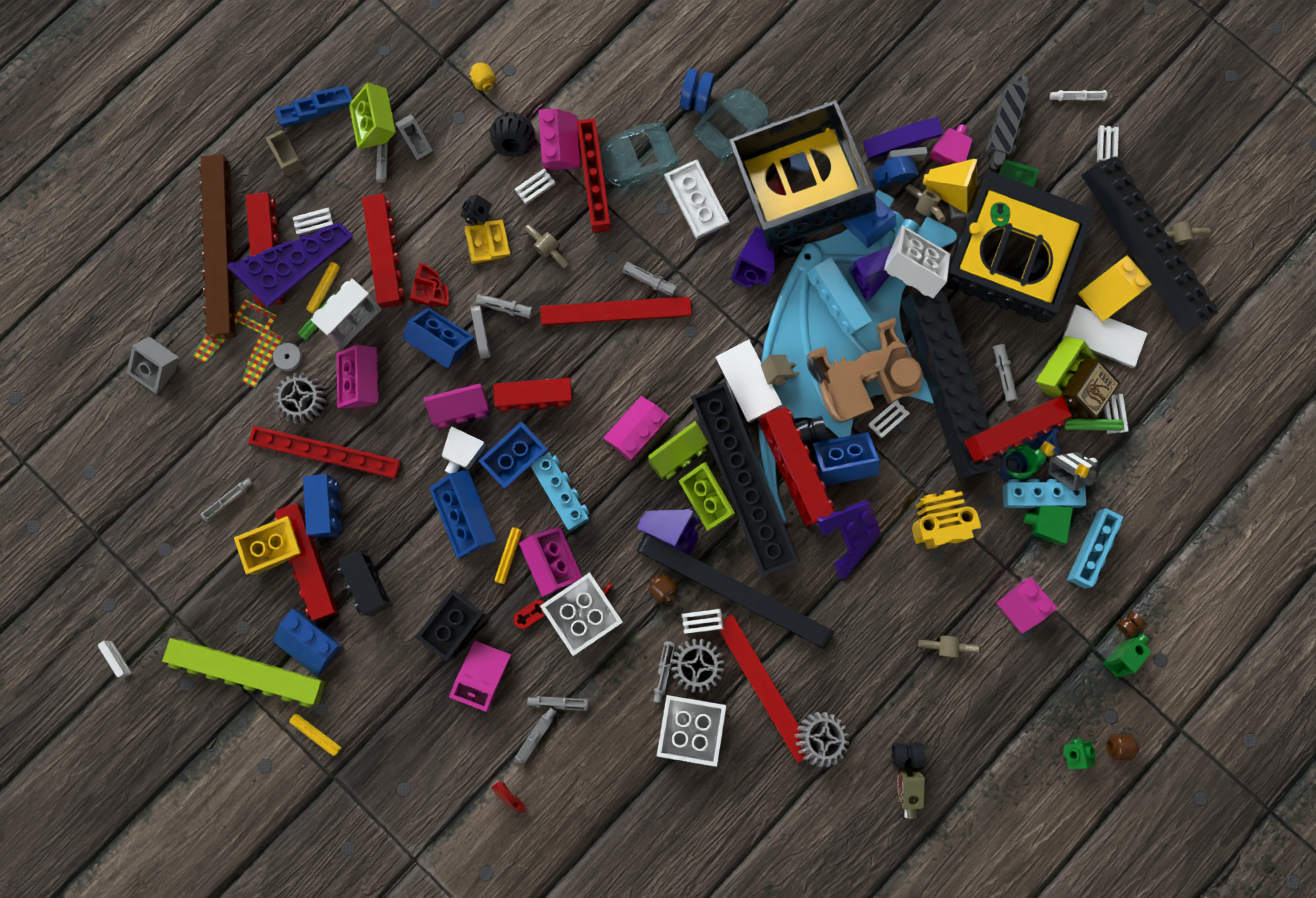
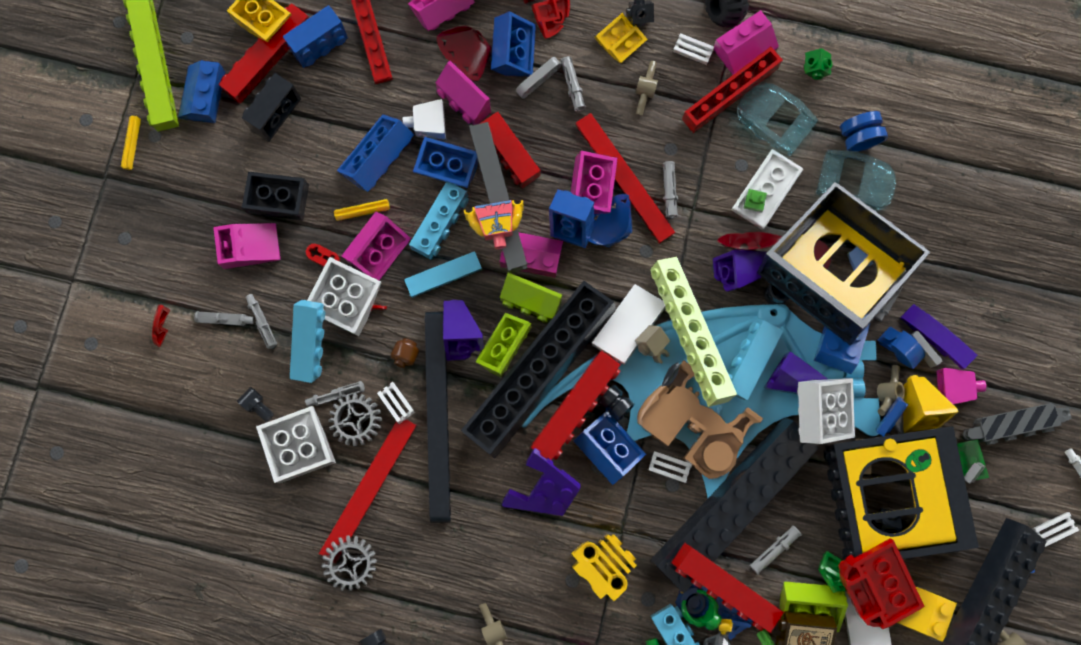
camera: 60 degrees right, 0 degrees up
(417, 380) = (467, 49): none -> dark red piece
(575, 426) = (496, 190): none -> dark grey tile
(598, 439) = (495, 220): none -> torso
(605, 668) = (306, 341): none -> medium azure brick
(606, 340) = (594, 179): none -> dark pink slope
(610, 516) = (443, 274): none -> medium azure tile
(613, 92) = (818, 64): none -> green brick
(628, 750) = (253, 402): none -> black axle
(631, 374) = (571, 218): none -> blue brick
(650, 347) = (613, 226): none -> blue piece
(701, 214) = (755, 200): none -> bright green tile
(742, 226) = (752, 239): none -> dark red piece
(787, 331) = (698, 342): none -> yellowish green brick
(950, 214) = (891, 416): none -> blue slope
(1031, 177) = (974, 472): none -> light grey tile
(1052, 333) = (831, 573): none -> green slope
(1083, 305) = (880, 585): none -> red plate

